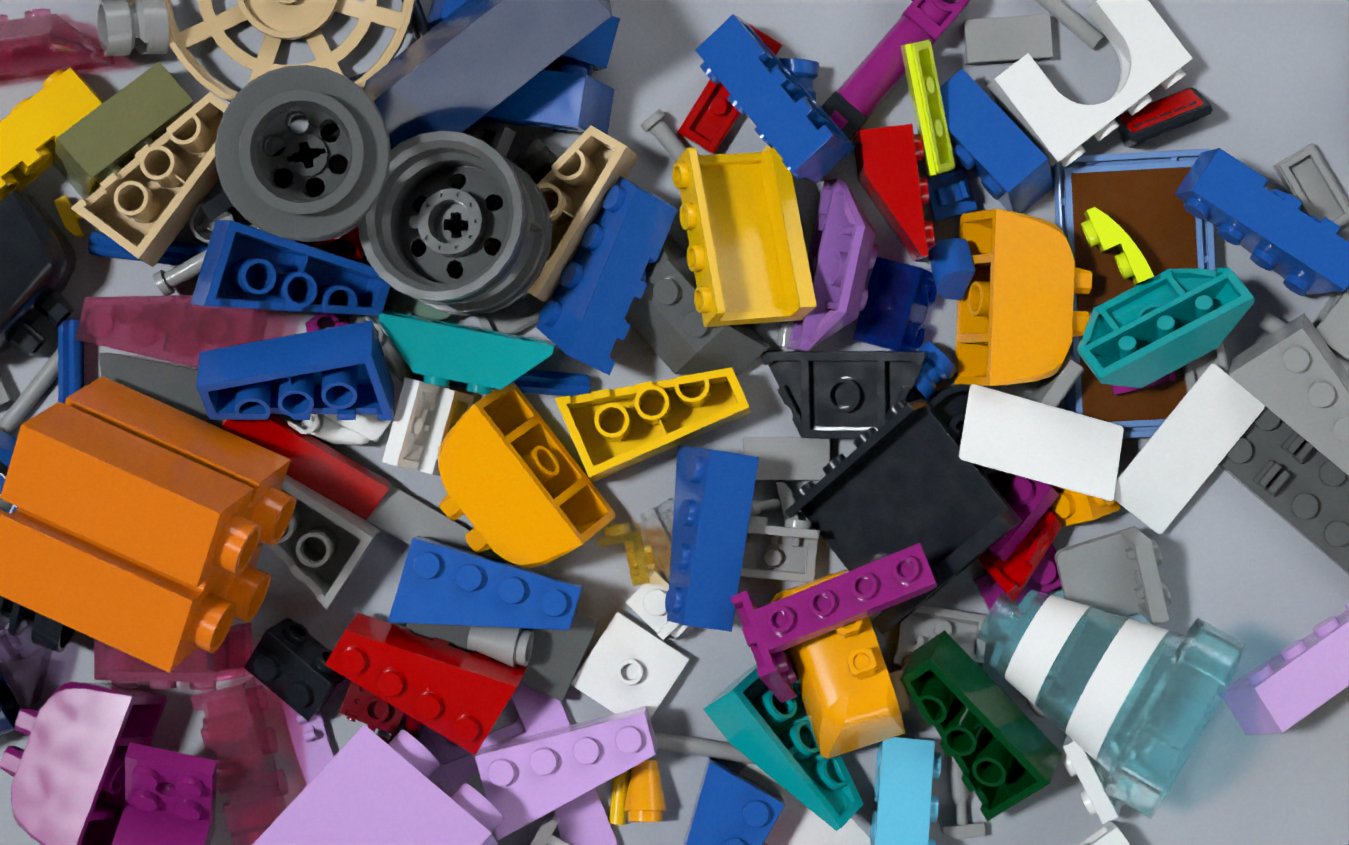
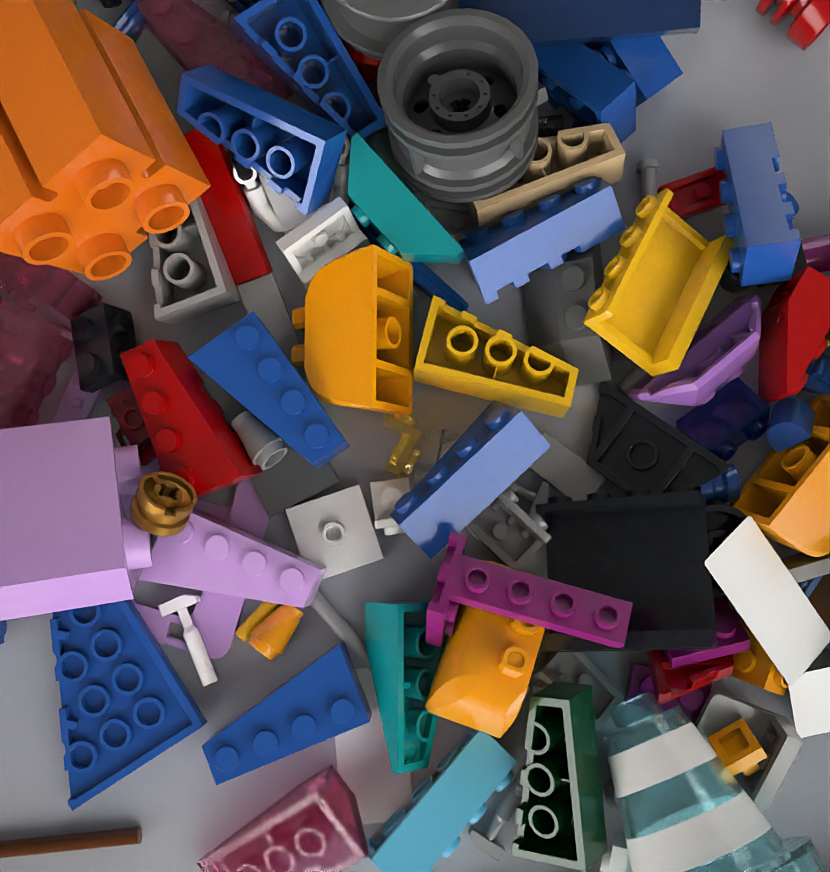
camera: 40 degrees right, 5 degrees down
(472, 760) = (163, 503): none -> pearl gold wheel
(1108, 586) = (738, 748): none -> light orange tile

